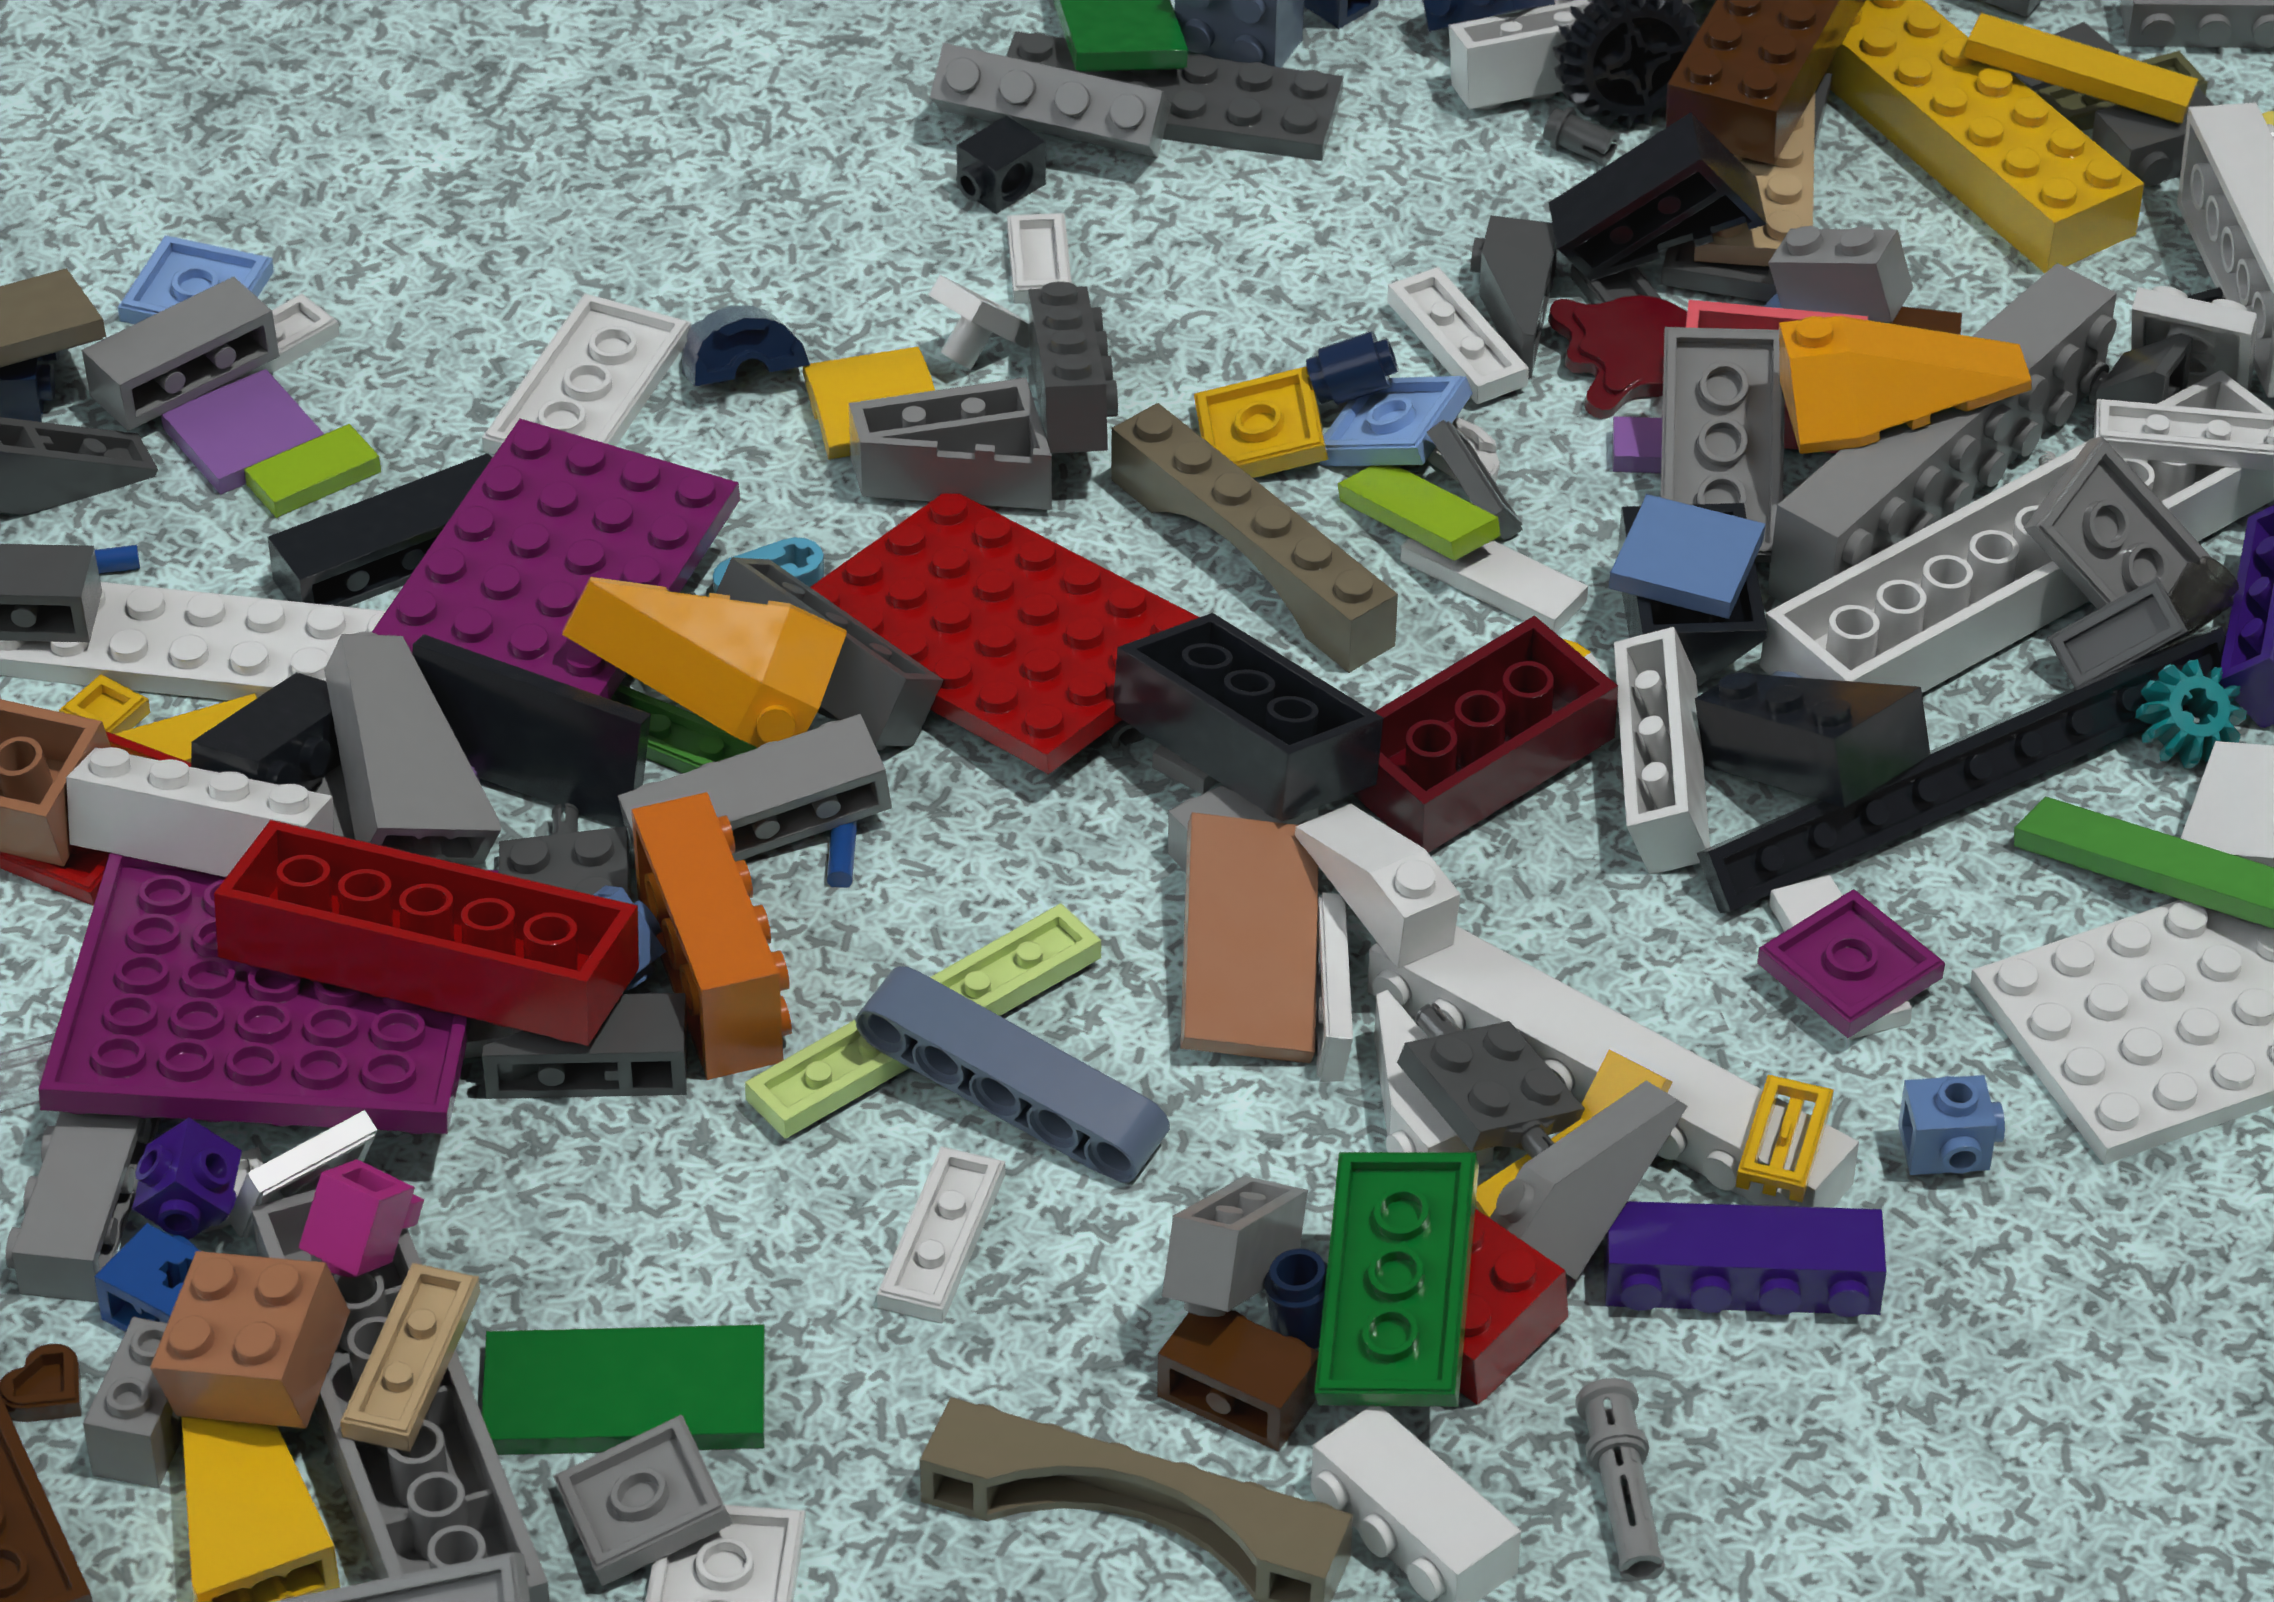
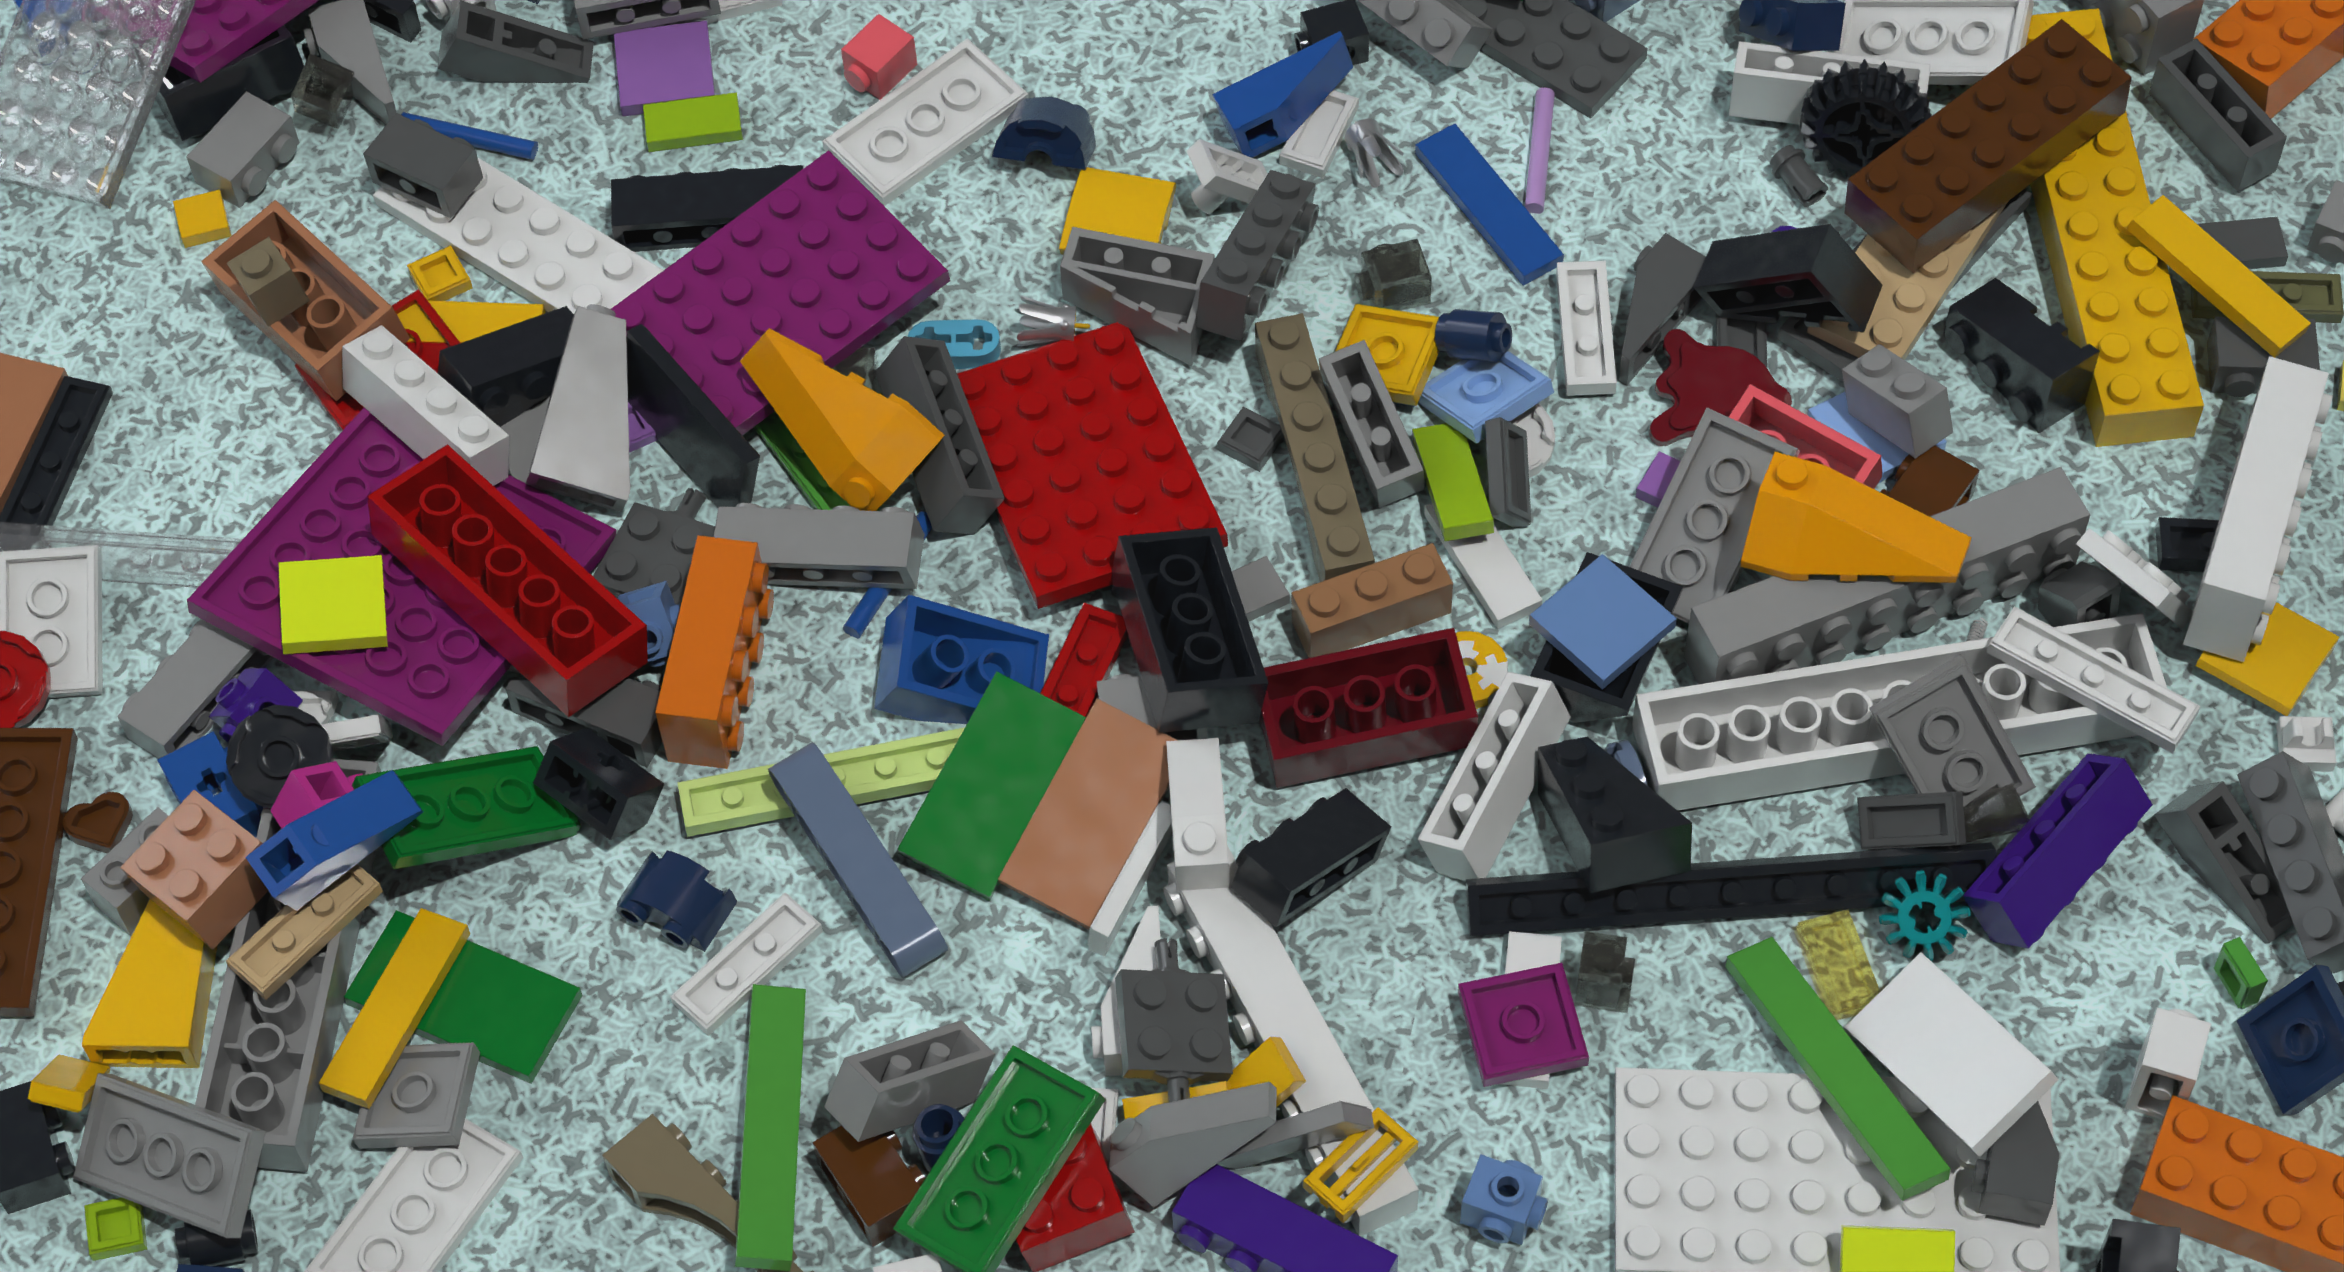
camera: 30 degrees right, 15 degrees up
(225, 1033) = (332, 604): none -> neon yellow tile
(262, 1191) = (271, 746): none -> black tile
(411, 1233) = (332, 839): none -> blue slope
(497, 337) = (878, 57): none -> coral brick
(521, 1181) = (475, 808): none -> green tile
(560, 1419) = (394, 1008): none -> yellow tile
(654, 1111) = (598, 783): none -> black brick
(819, 1191) = (678, 898): none -> dark blue cylinder
(882, 514) = (1051, 322): none -> flat silver piece
(985, 229) = (1279, 98): none -> blue slope
(989, 862) = (944, 658): none -> blue slope
(1097, 1363) = (770, 1128): none -> bright green tile
(1103, 245) = (1367, 142): none -> flat silver piece
(1117, 952) = (991, 785): none -> green tile
(1134, 828) = (1086, 658): none -> red plate
(1165, 553) = (1251, 439): none -> dark grey tile
(1223, 350) = (1394, 276): none -> clear smoke brick
(1271, 264) = (1489, 204): none -> blue tile
(1291, 202) = (1539, 150): none -> lavender bar
(1306, 473) = (1371, 423): none -> light grey brick
(1415, 636) = (1372, 602): none -> medium nougat brick
(1520, 884) = (1309, 856): none -> black brick
(1707, 1125) = (1302, 1132): none -> light grey tile
(1902, 881) = (1604, 973): none -> clear smoke brick
(1944, 209) = (2021, 354): none -> black wedge
(2122, 791) = (1838, 963): none -> clear yellow tile

